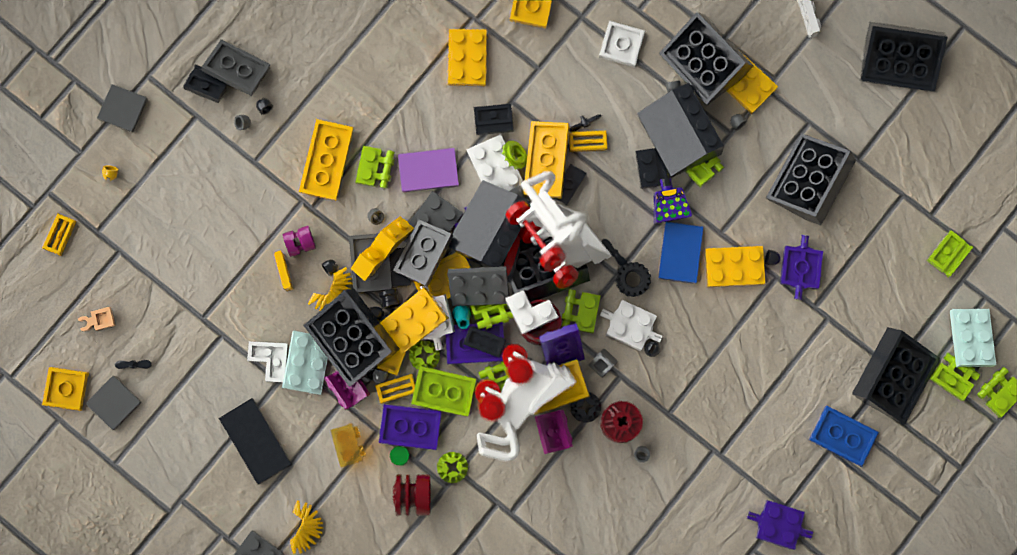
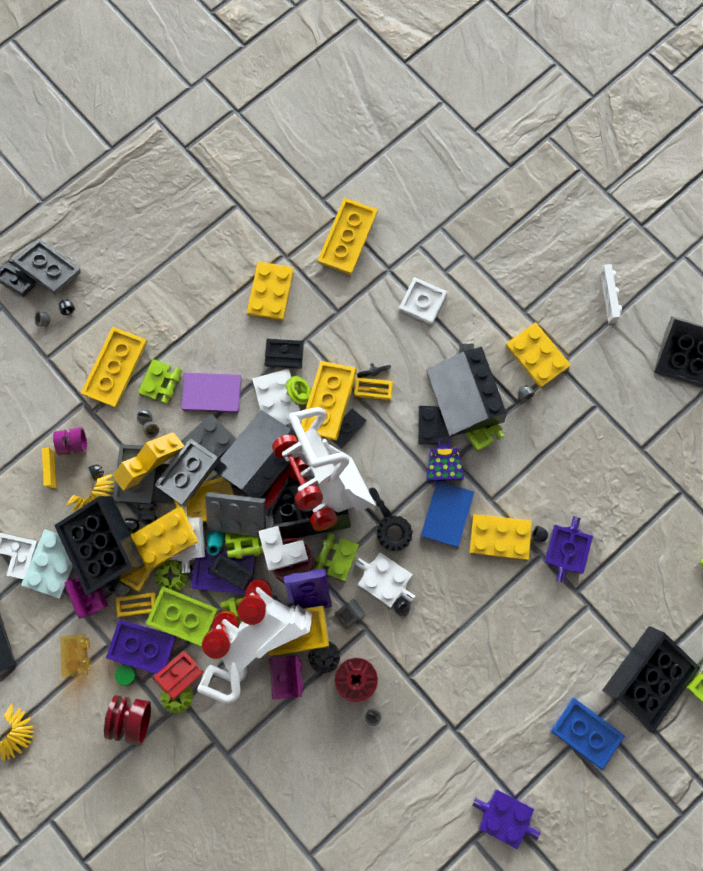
camera: 15 degrees right, 5 degrees down
(363, 208) = (142, 420): none -> dark grey hinge
(451, 446) = (177, 675): none -> red plate
(705, 58) = (502, 326): black slope -> none
(811, 178) = (591, 461): black slope -> none

